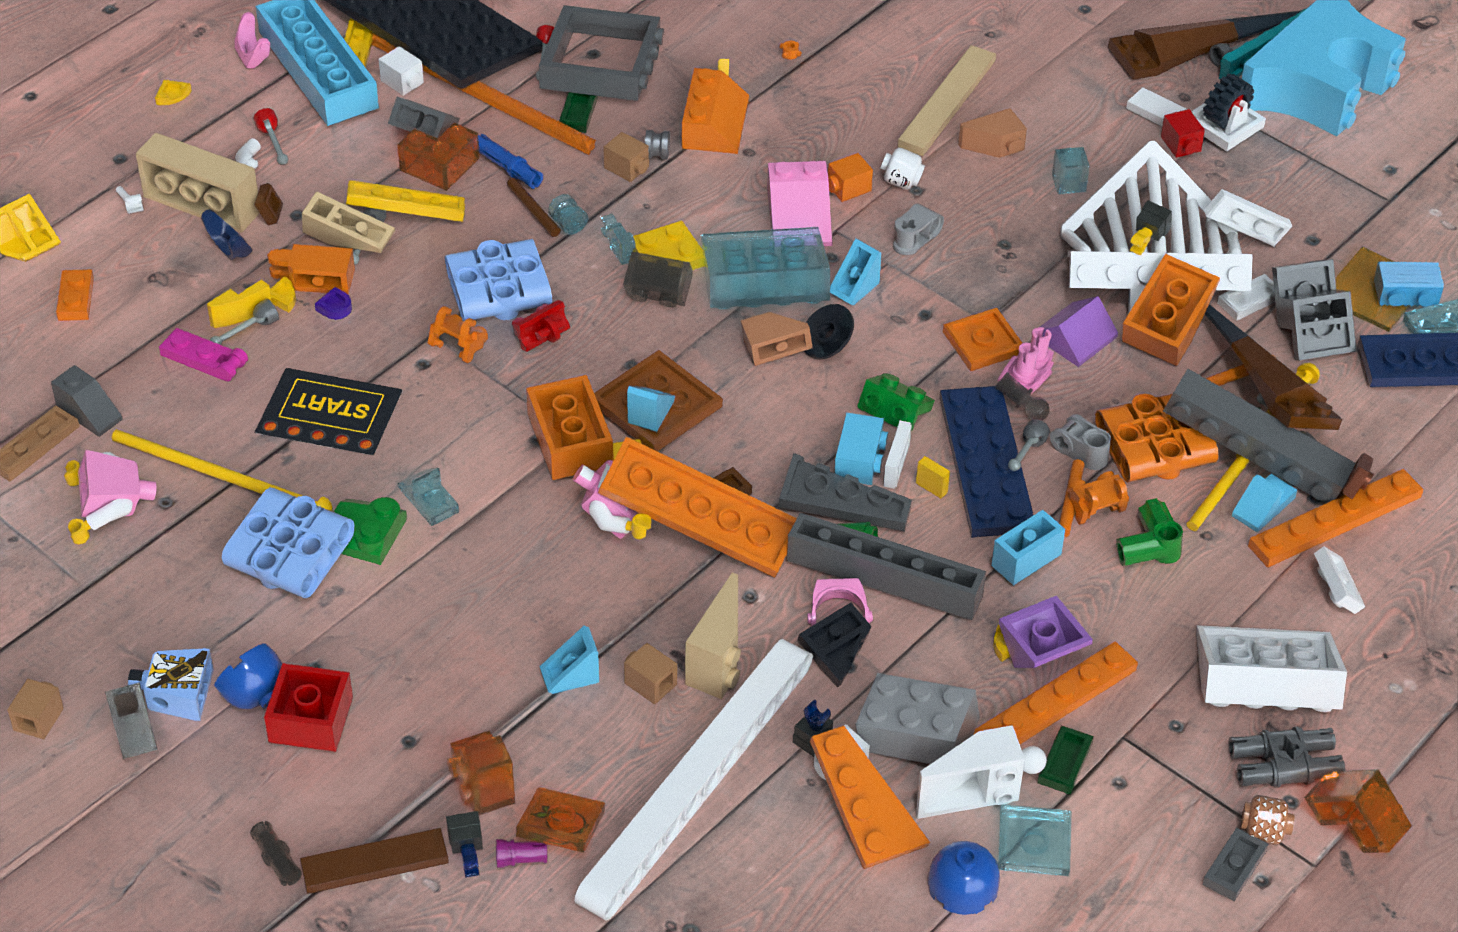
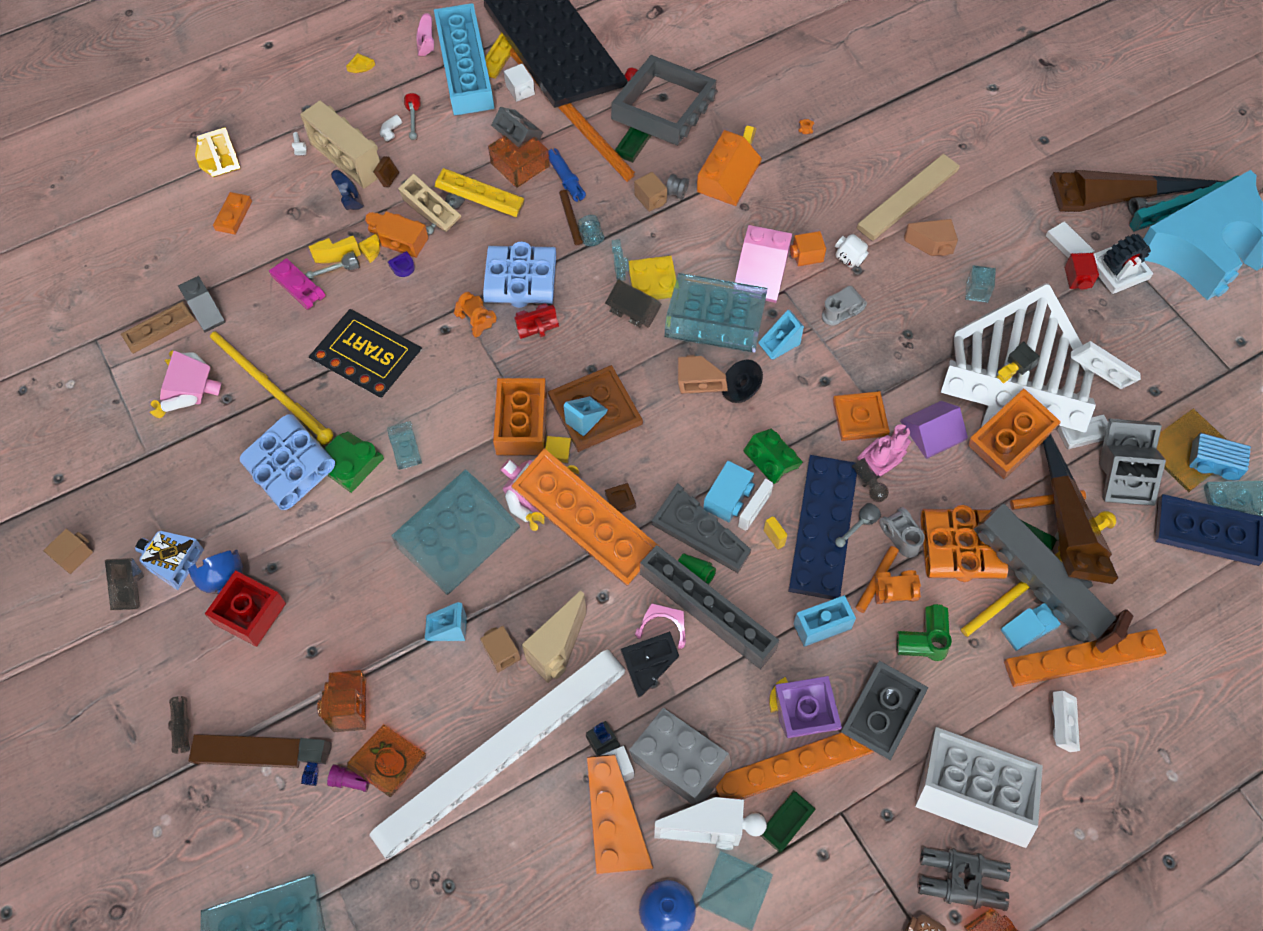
camera: 20 degrees right, 15 degrees up
(538, 568) = (455, 532): none -> clear light blue slope
(1133, 612) = (884, 710): none -> dark grey slope

